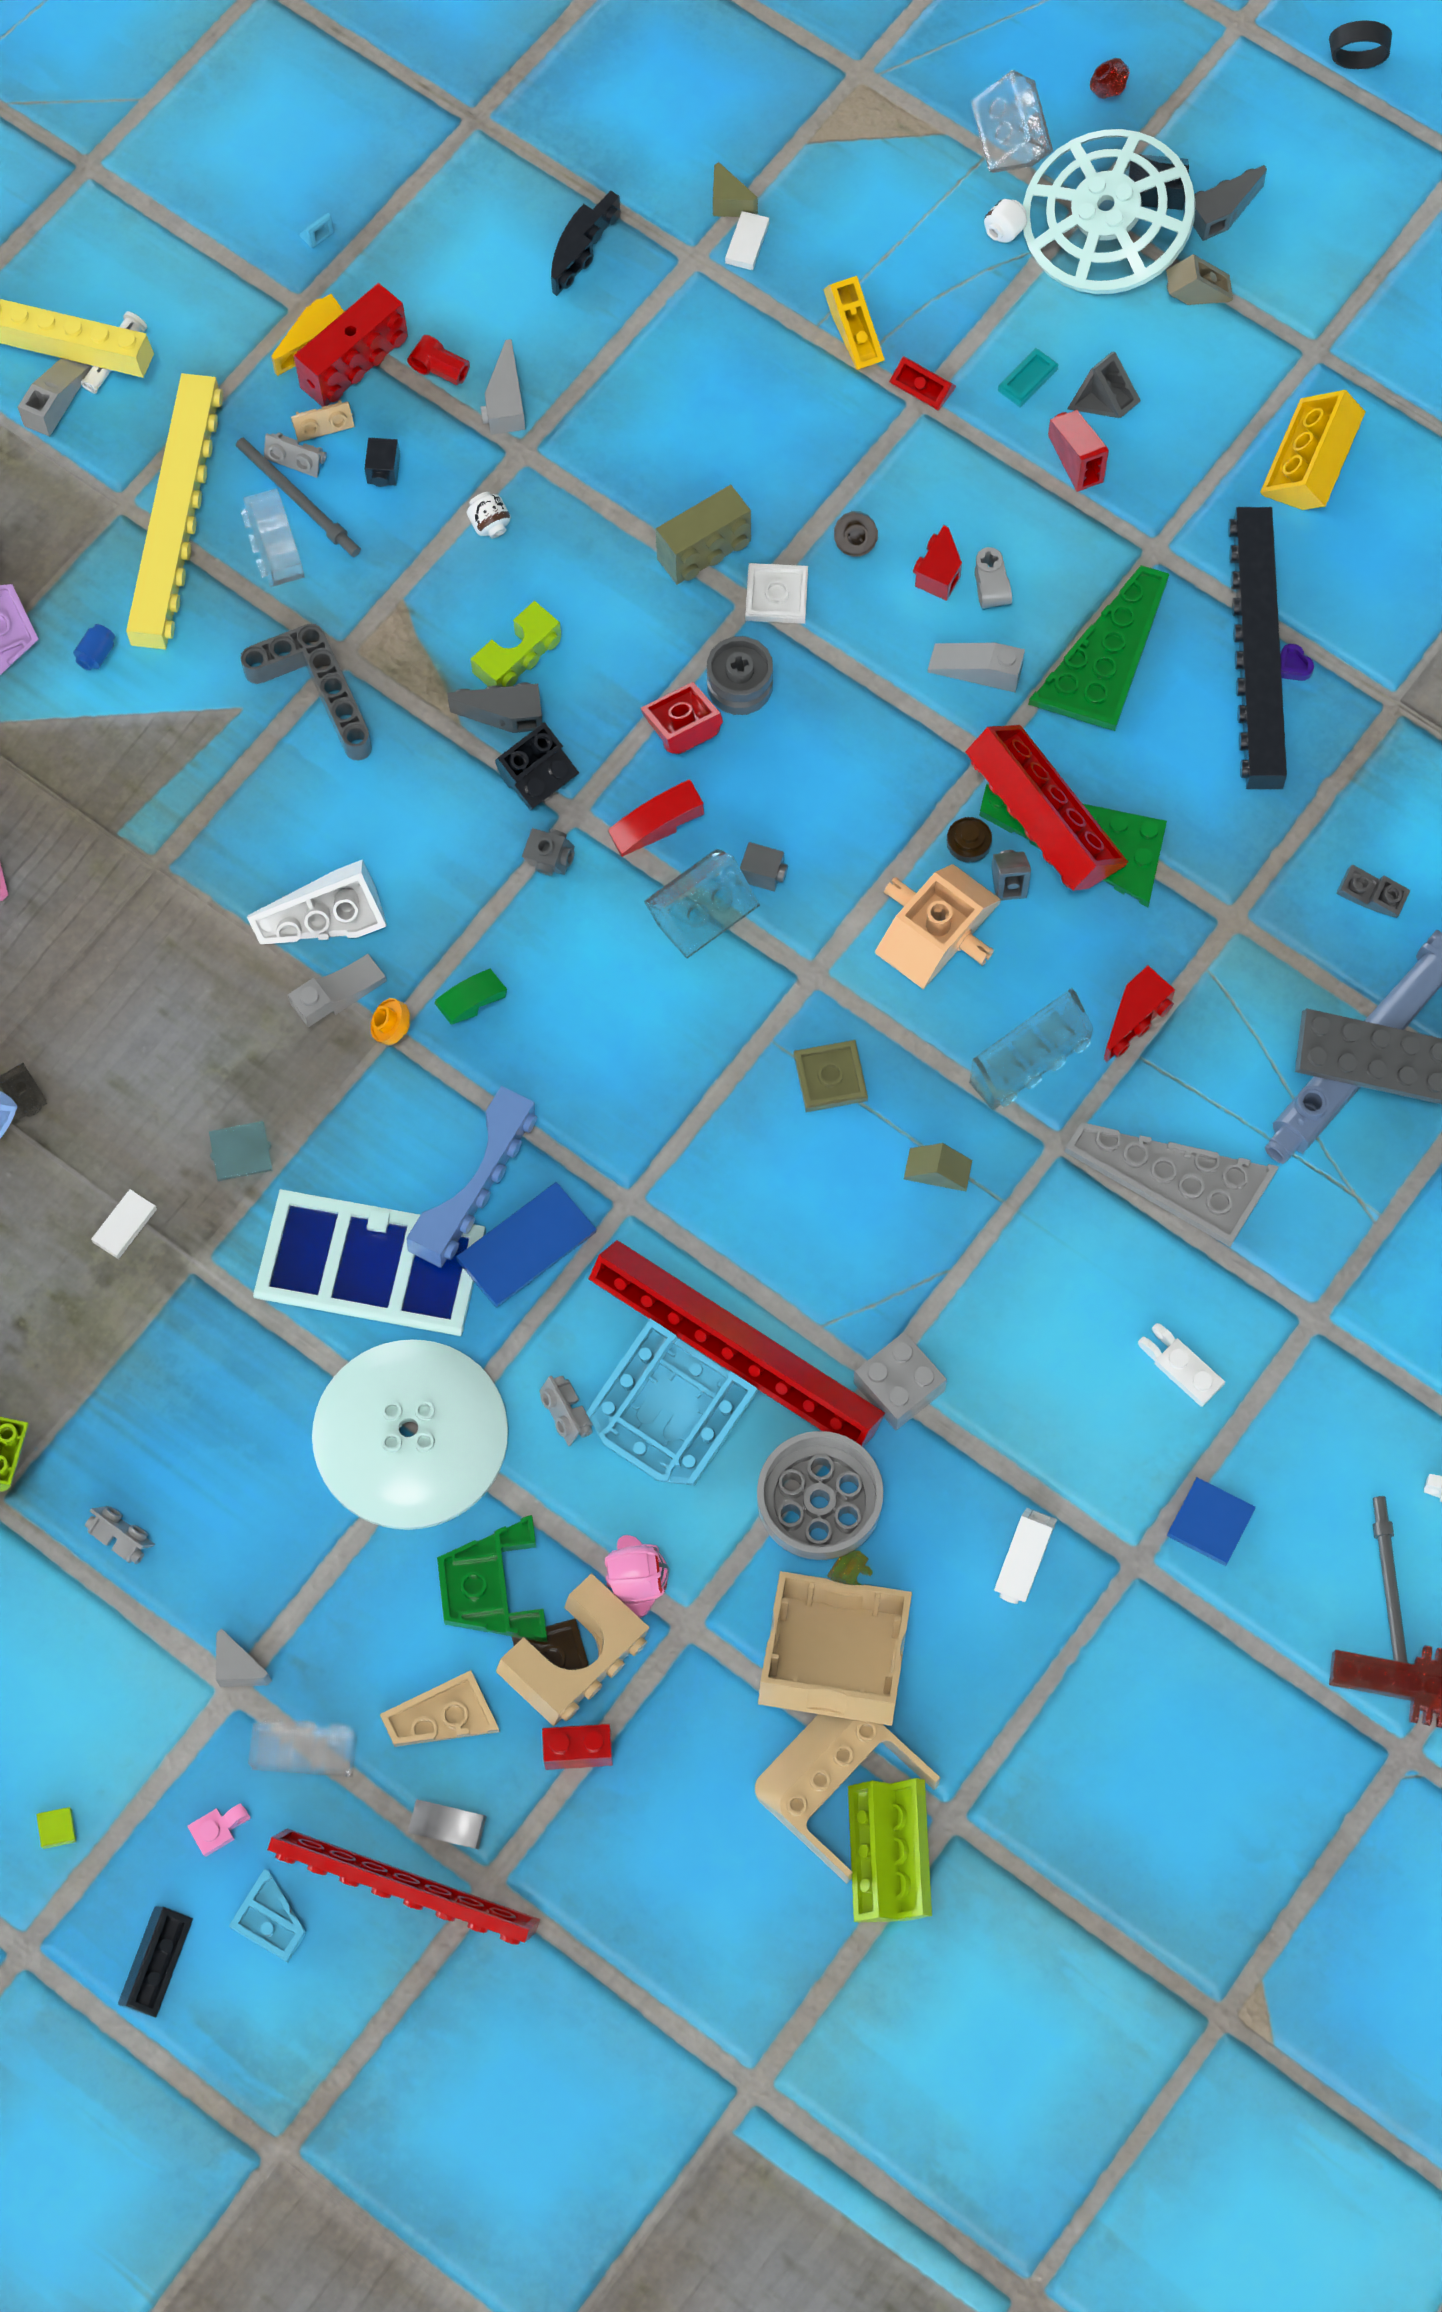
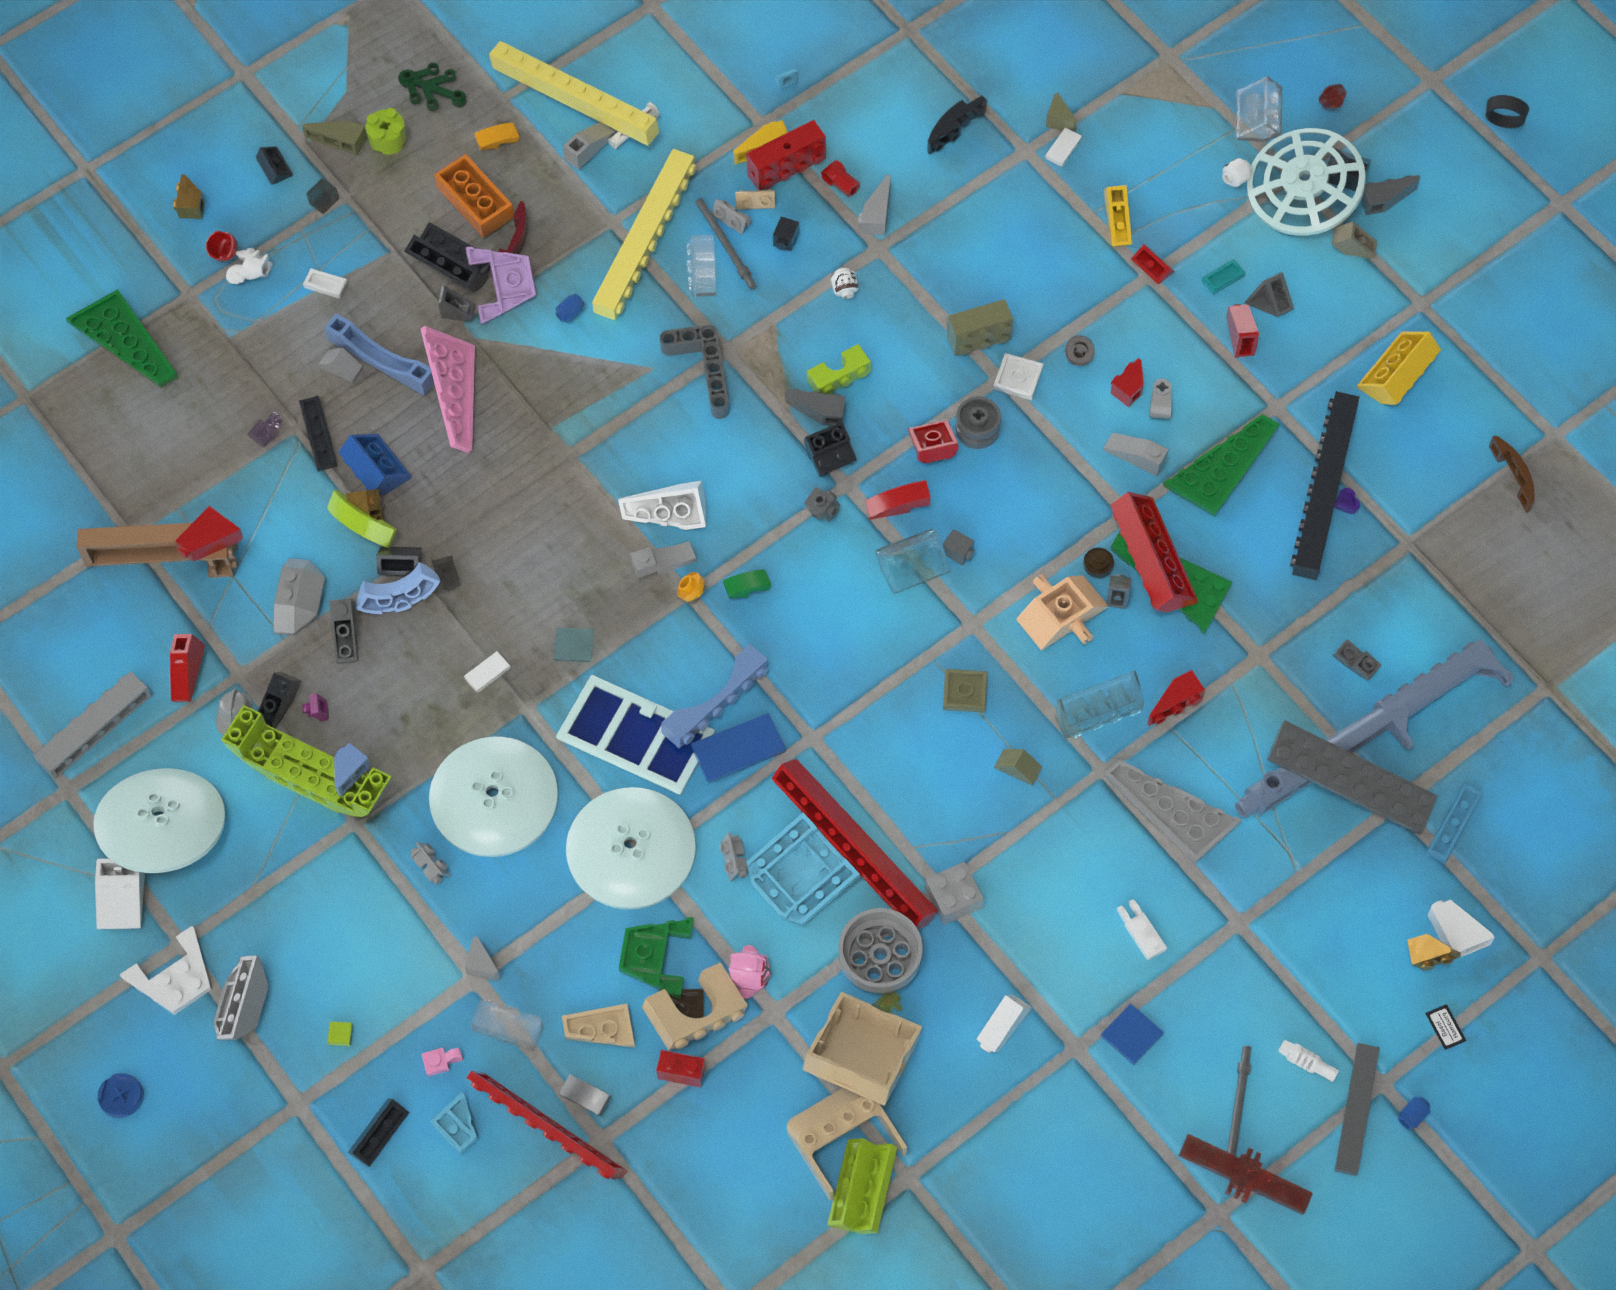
camera: 15 degrees right, 5 degrees down
(194, 1451) = (496, 823): none -> light aqua dish

